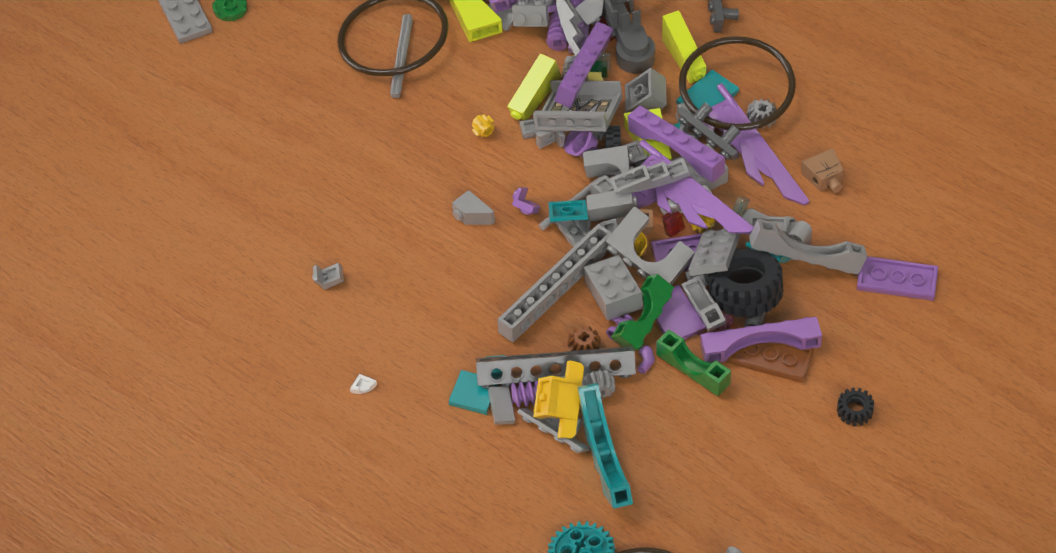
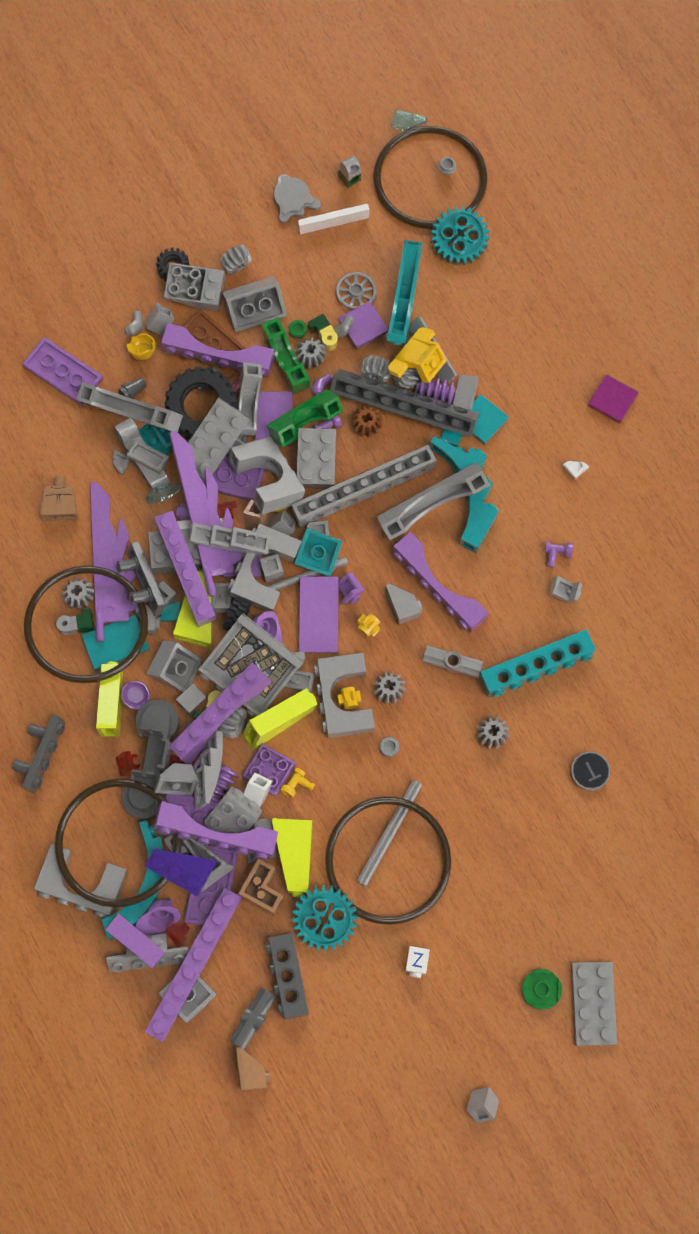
camera: 160 degrees left, 20 degrees up
(248, 156) = (590, 771): none -> black tile
(328, 211) = (580, 641): none -> teal brick
(345, 148) = (485, 730): none -> light grey gear
(351, 460) = (613, 398): none -> magenta tile
(354, 306) = (552, 549): none -> medium lavender piece
(405, 184) = (440, 659): none -> light grey piece
(413, 227) = (466, 610): none -> medium lavender arch
(431, 111) = (389, 747): none -> light grey tile
(449, 326) = (480, 515): none -> teal arch
(452, 147) = (385, 692): none -> light grey gear
(494, 182) = (368, 625): none -> yellow gear
(499, 50) = (298, 777): none -> yellow piece
(502, 144) = (341, 722): none -> light grey arch
(508, 266) = (404, 515): none -> light grey arch
(521, 59) = (271, 766): none -> medium lavender tile
(525, 35) = (257, 789): none -> white brick
(543, 176) = (318, 615): none -> medium lavender tile
(618, 72) = (190, 699): none -> light grey panel
(635, 426) = (366, 326): none -> medium lavender tile
(646, 20) = (125, 763): none -> clear red tile
(651, 410) = (342, 329): none -> light grey arm
(660, 461) = (355, 290): none -> light grey wheel
(666, 60) = (134, 695): none -> medium lavender hair
(670, 405) = (324, 331): none -> leg
(671, 380) = (310, 346): none -> light grey gear
(698, 401) = (297, 329): none -> green tile
(721, 515) = (333, 218): none -> white tile
(748, 92) = (76, 624): none -> leg
(754, 403) = (254, 303): none -> light grey slope
(777, 524) = (292, 197): none -> light grey tile
(795, 429) = (235, 259): none -> light grey gear
(817, 388) = (195, 286): none -> light grey slope
(822, 283) = (132, 388): none -> dark grey cone
(836, 319) = (141, 347): none -> yellow hair
(836, 352) = (158, 319): none -> light grey panel
(854, 342) = (135, 326): none -> light grey arm

